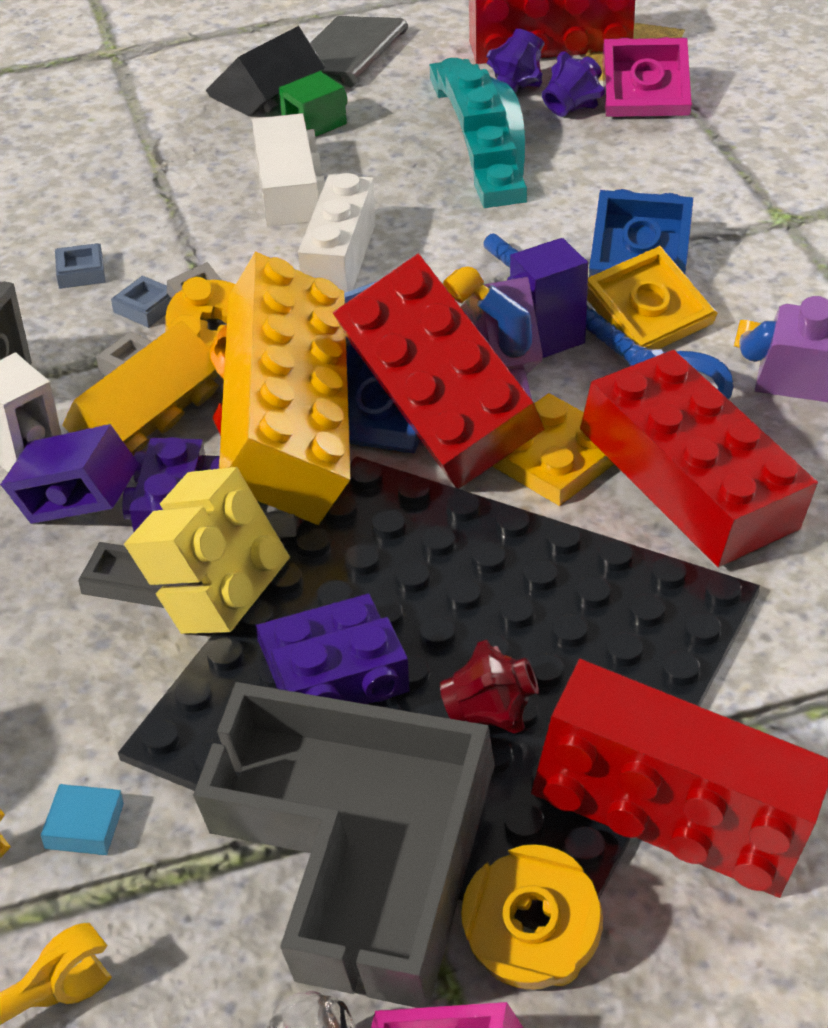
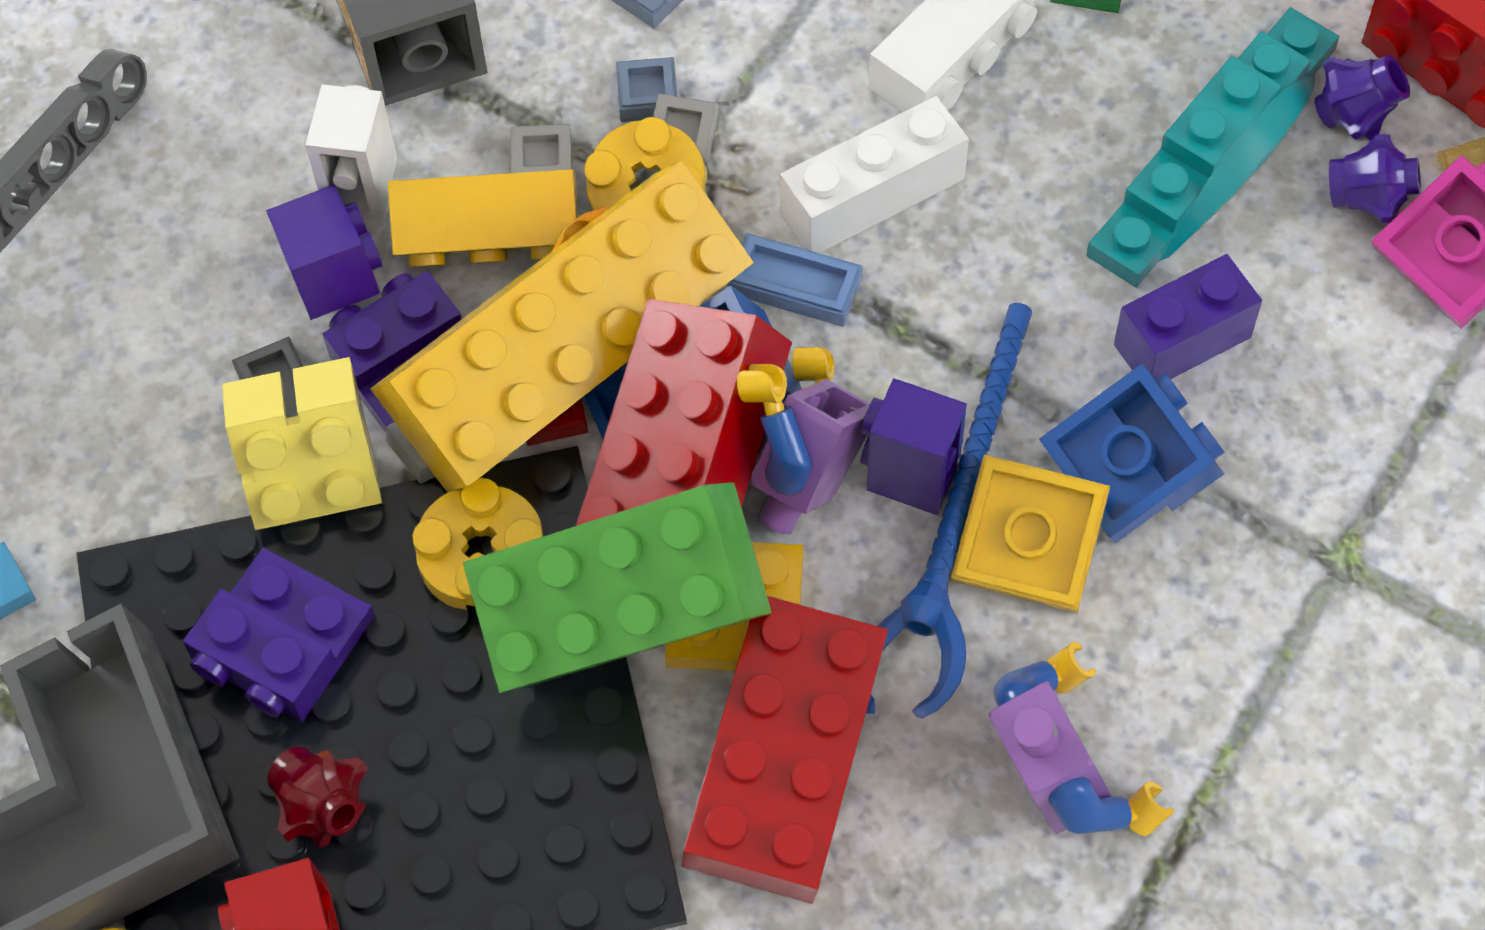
camera: 50 degrees right, 20 degrees up
(403, 503) = (457, 518): none -> yellow plate
(521, 429) = (617, 586): none -> bright green brick
(579, 178) = (1188, 319): none -> dark purple brick

